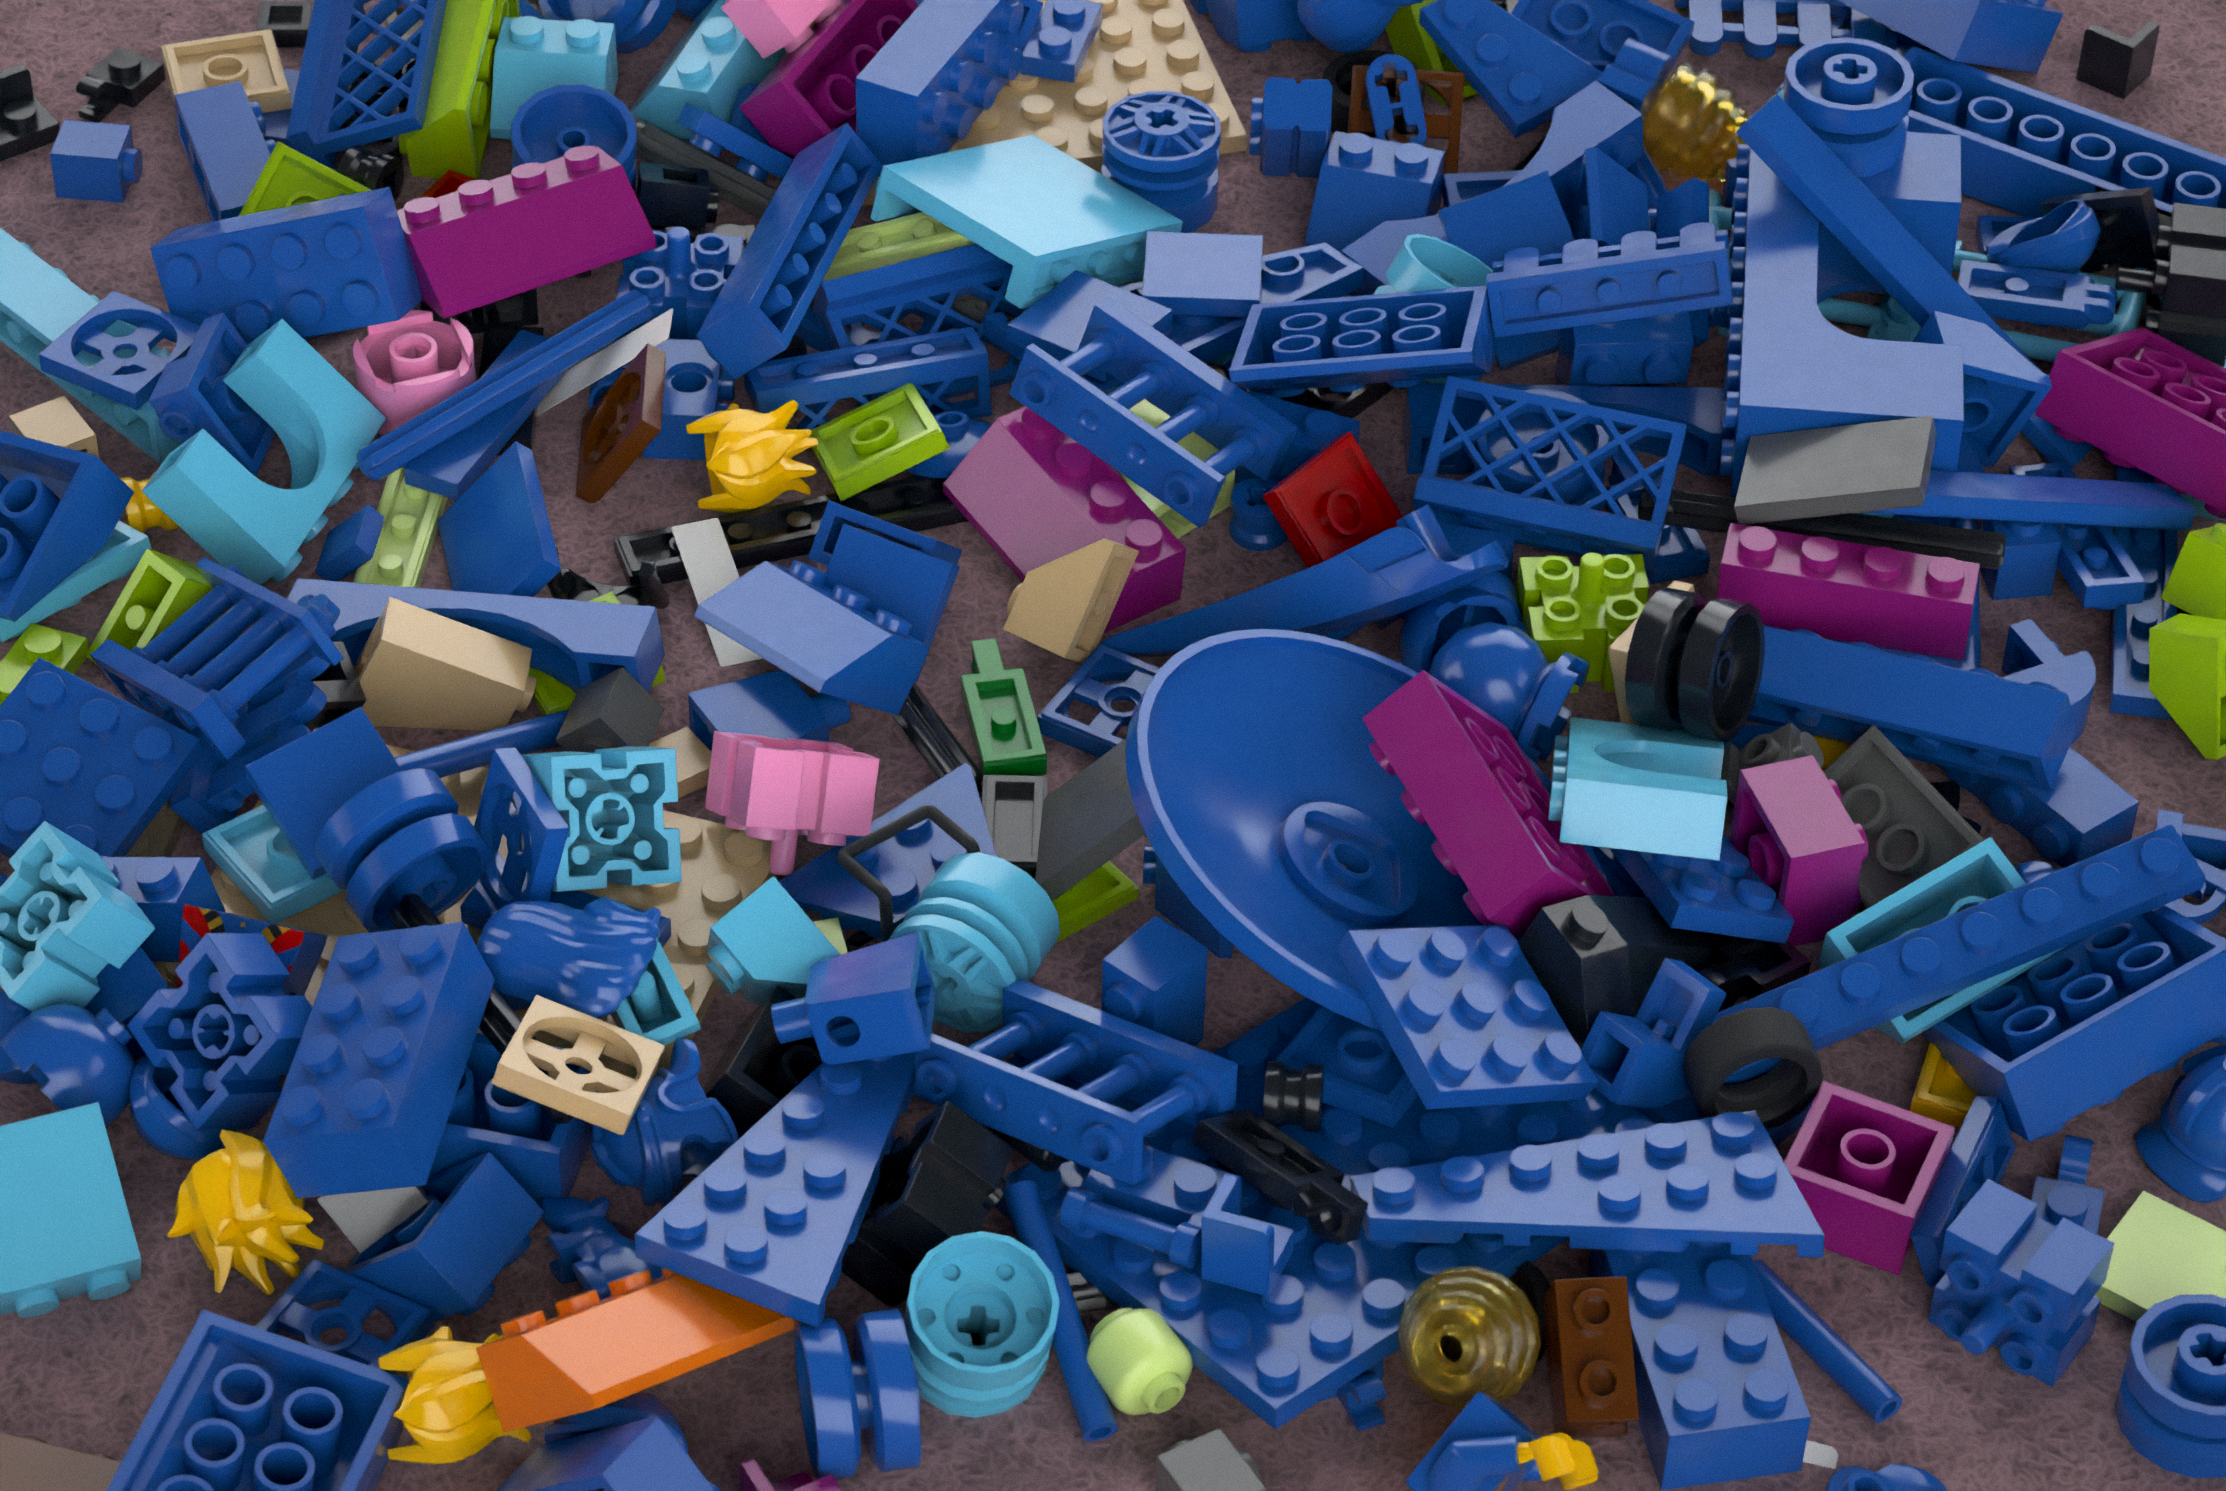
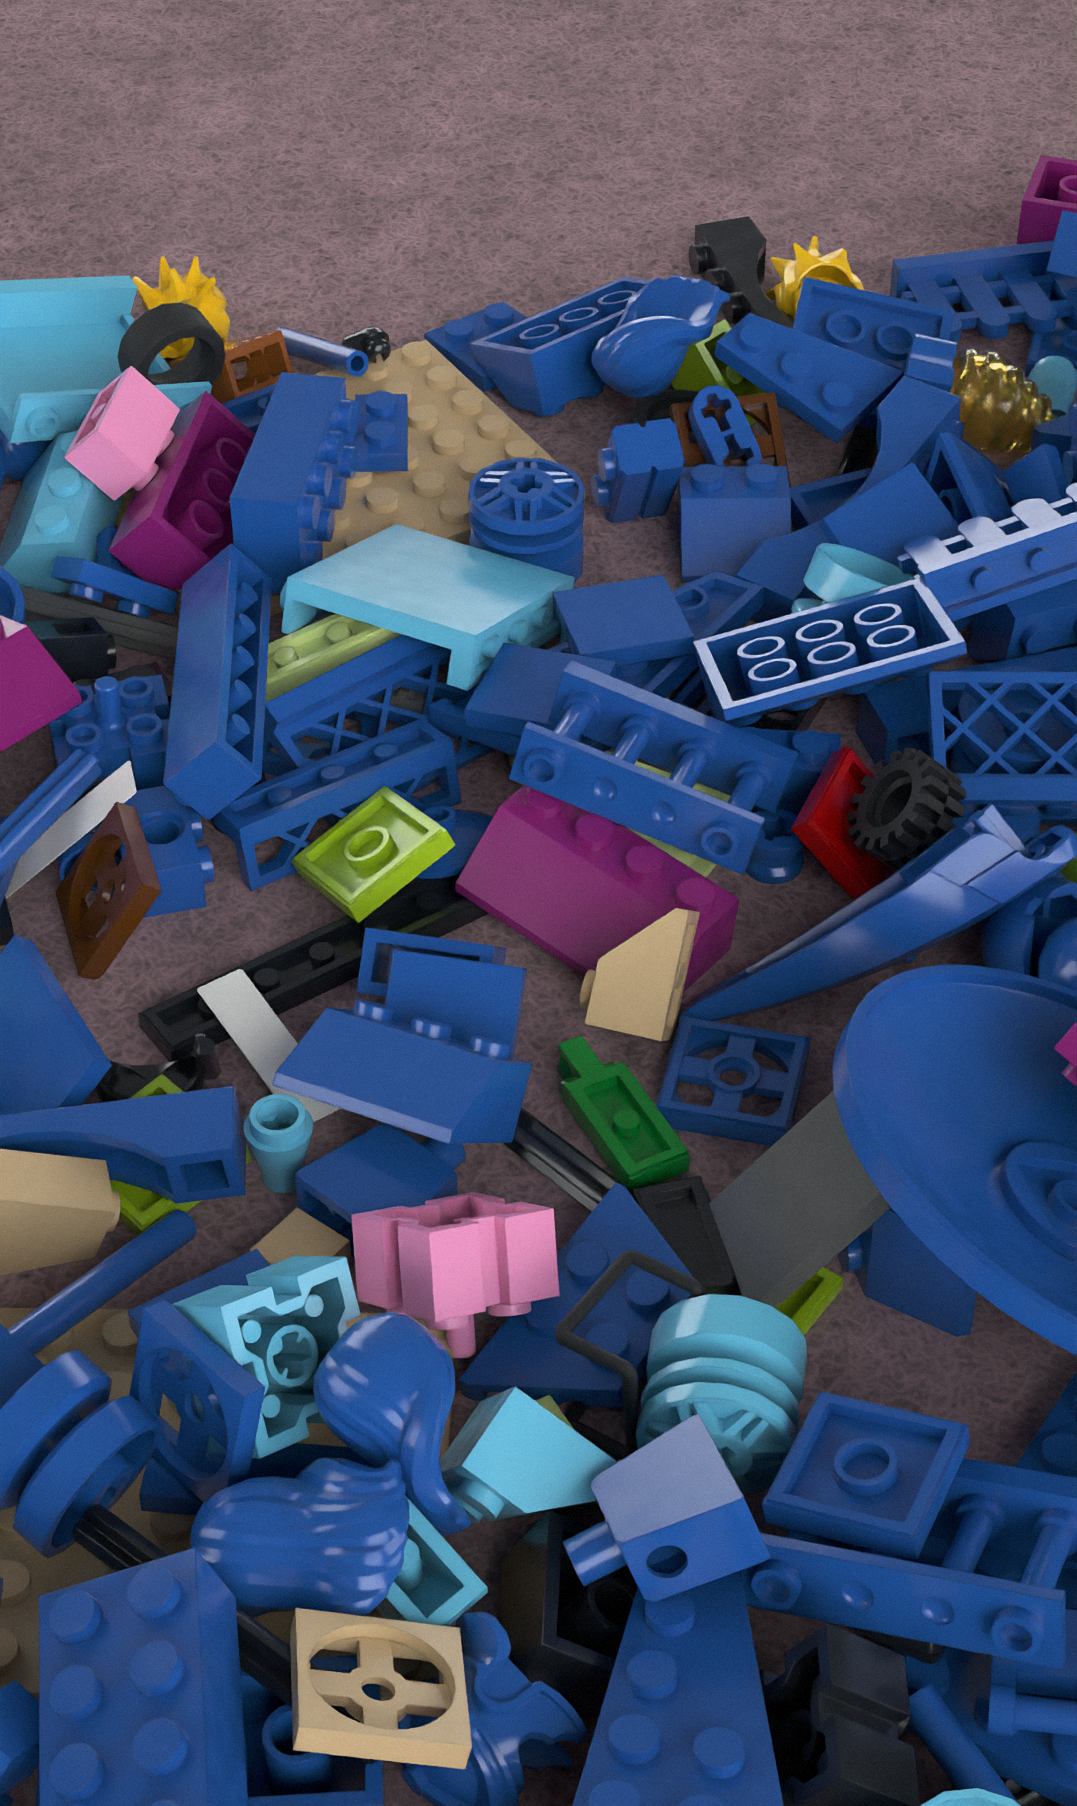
camera: 15 degrees left, 0 degrees up
(610, 715) = (217, 1221): dark grey brick -> none
(665, 862) = (389, 1398): none -> blue piece
(687, 662) = (279, 1139): none -> medium azure cone
(752, 457) = (253, 897): yellow hair -> none
(1047, 1015) = (867, 1475): none -> blue tile
(1158, 981) = (954, 1381): blue brick -> none
(1373, 495) = (905, 807): none -> black tyre

